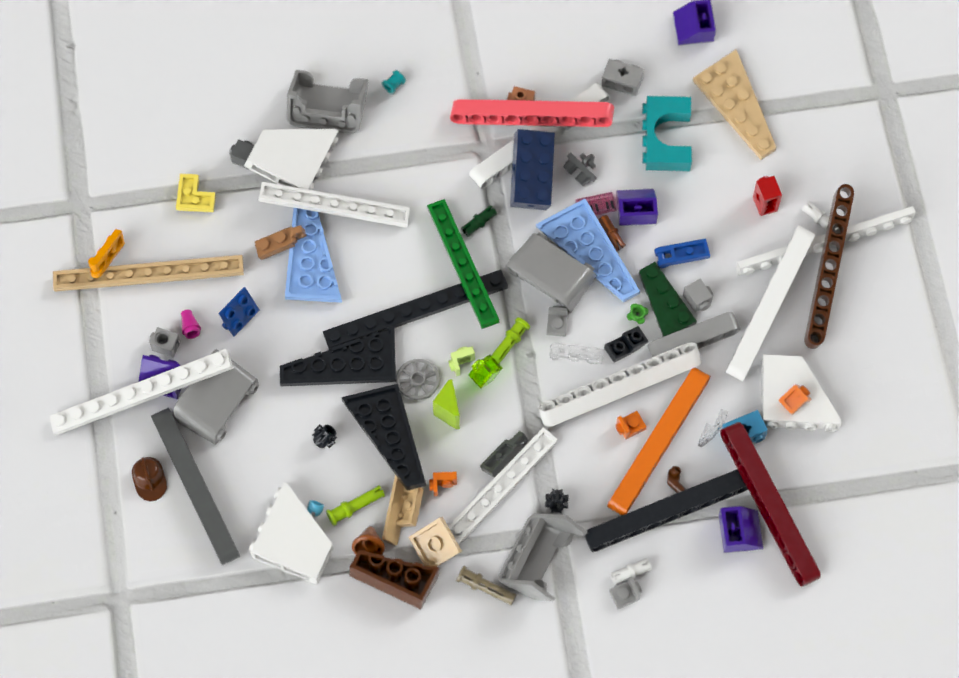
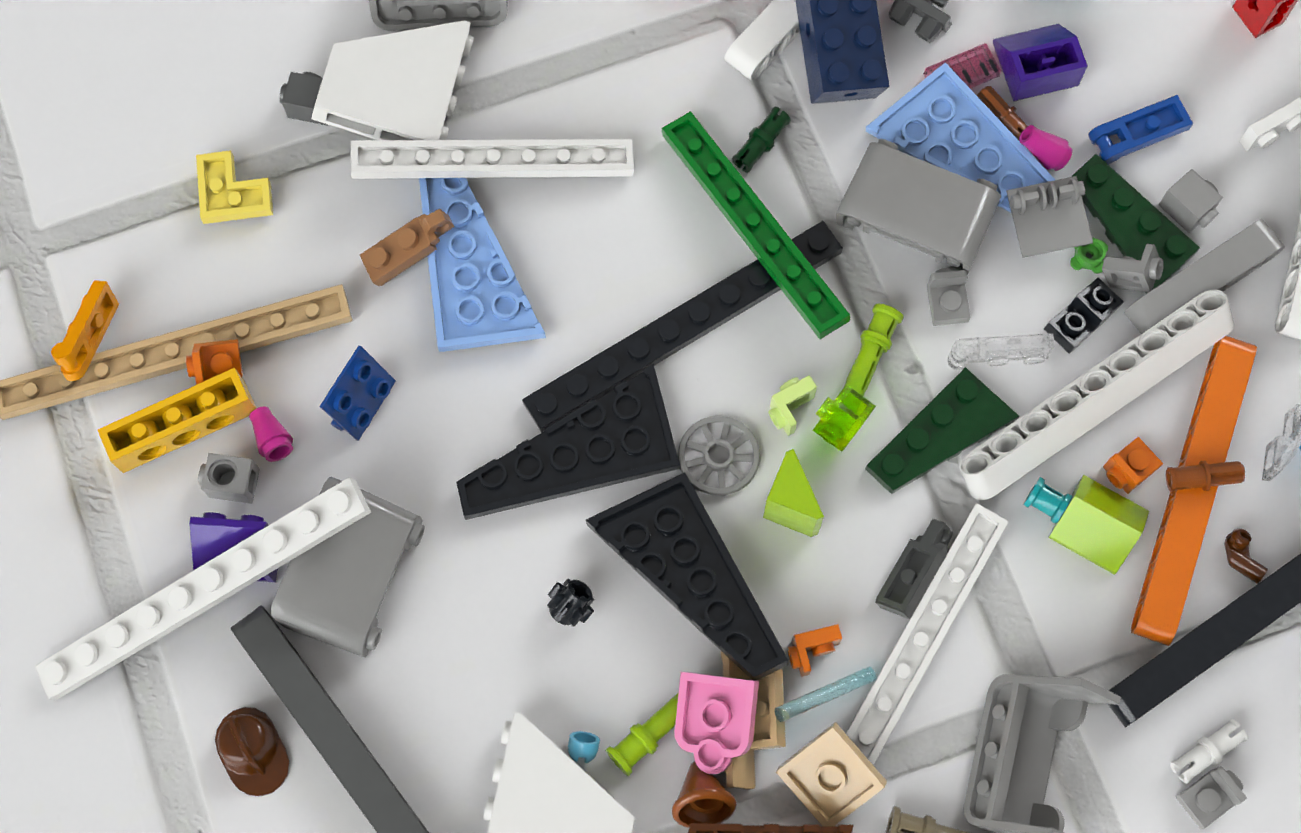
camera: 10 degrees left, 5 degrees up
(144, 308) = (177, 420): none -> yellow brick
(169, 282) = (213, 358): none -> orange bracket
(383, 504) = (715, 718): none -> bright pink plate
(442, 504) = (825, 694): none -> clear light blue bar
(535, 389) = (949, 424): none -> dark green wing
(556, 501) = (1037, 642): black gear -> none
(581, 433) = (1048, 500): none -> teal bush
(605, 450) = (1100, 525): none -> lime slope
(618, 289) = (1050, 216): none -> light grey hinge
(628, 253) = (1047, 148): none -> dark pink cone
(656, 327) = (1132, 273): none -> light grey bracket
(662, 434) = (1204, 475): none -> dark orange axle

